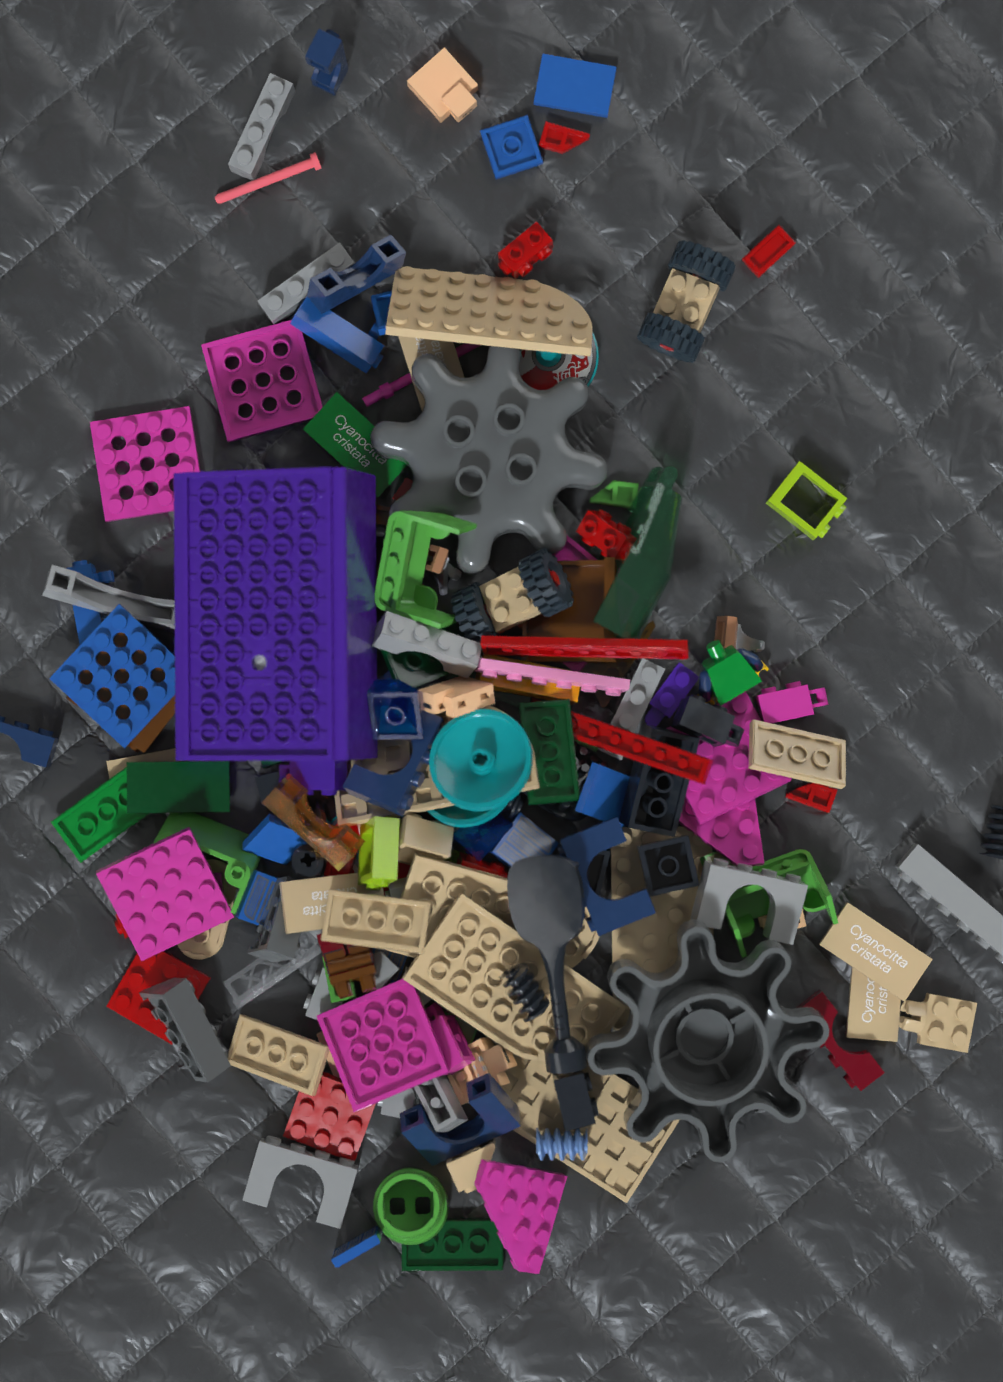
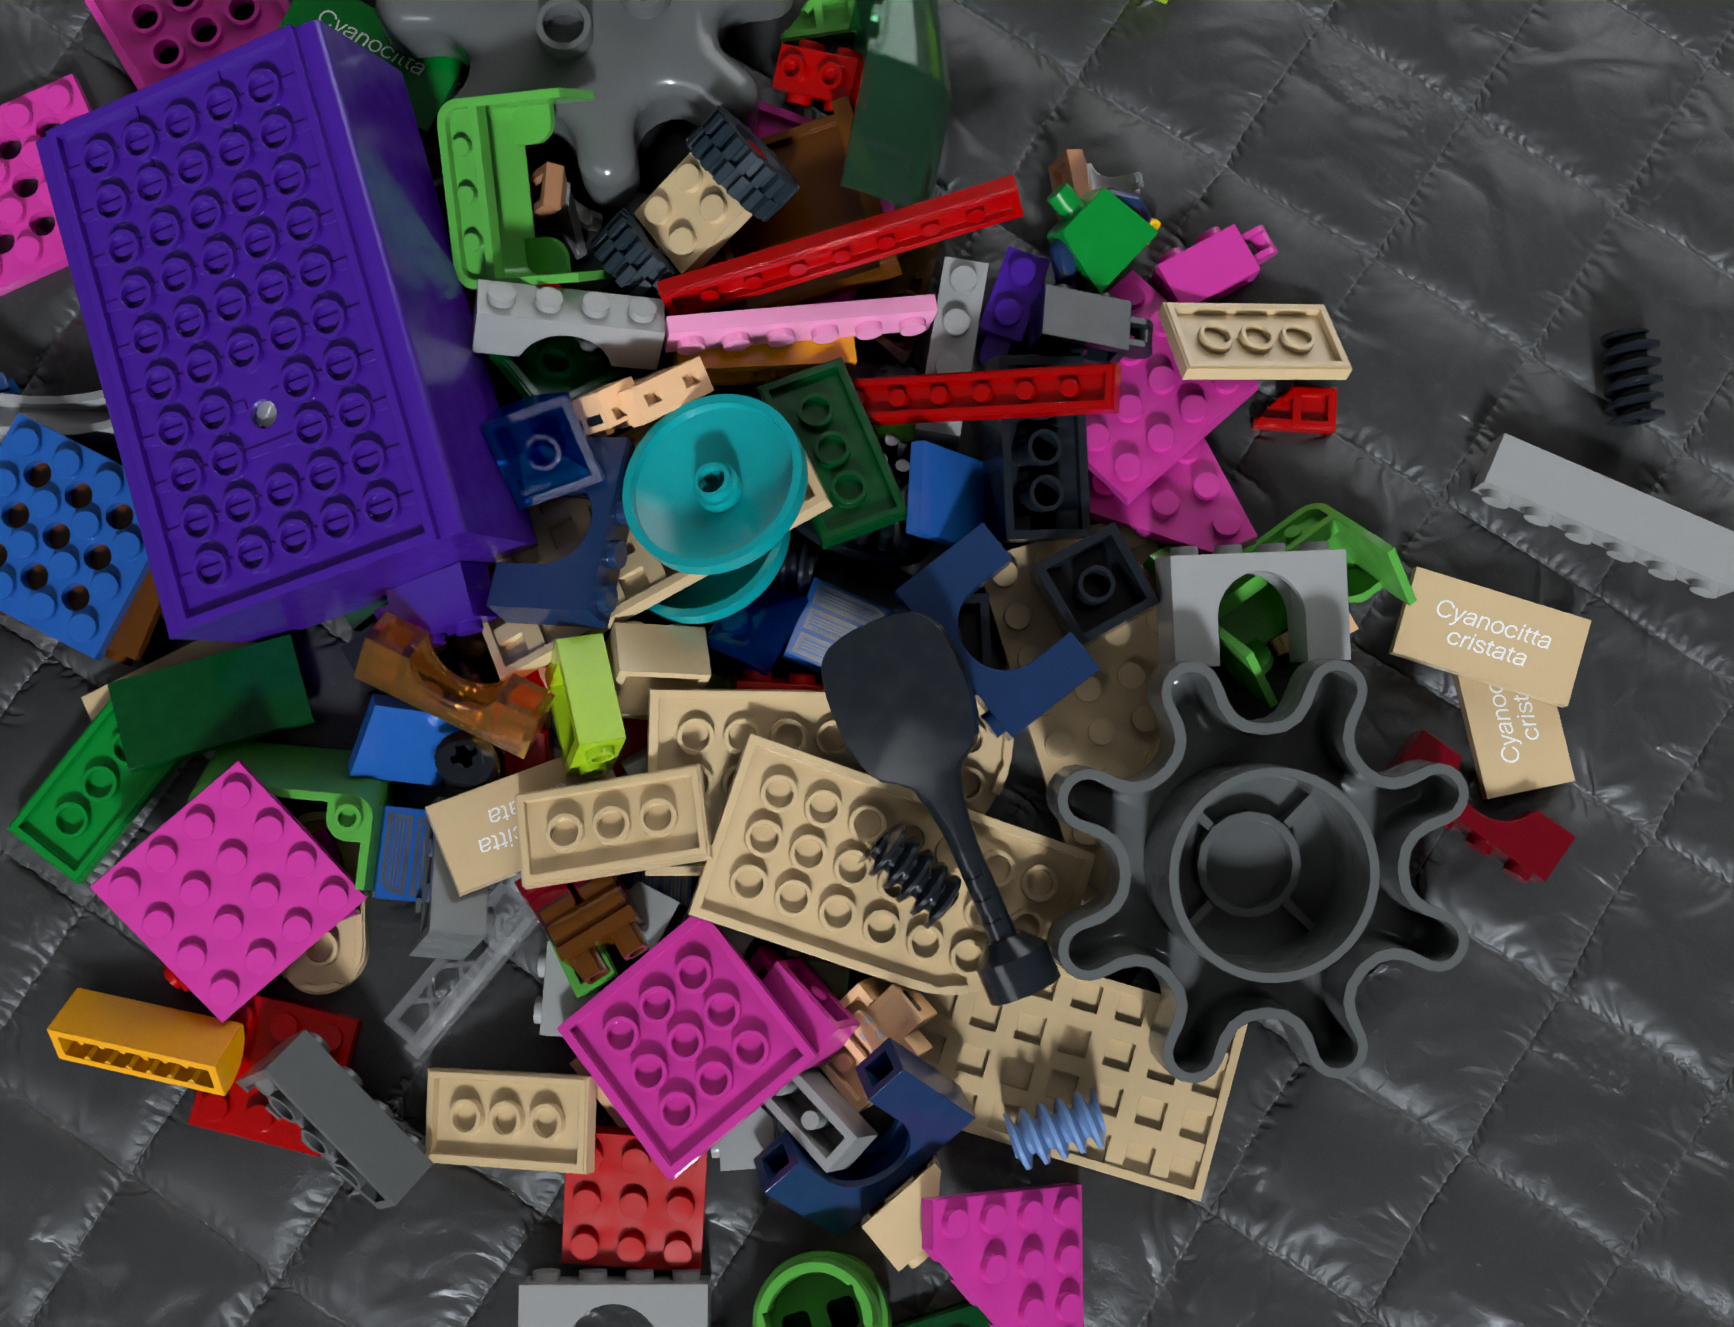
camera: 20 degrees left, 5 degrees down
(98, 957) = (148, 1041): none -> light orange brick
(574, 1100) = (1056, 1042): black brick -> none
(940, 1021) = (1636, 724): tan plate -> none

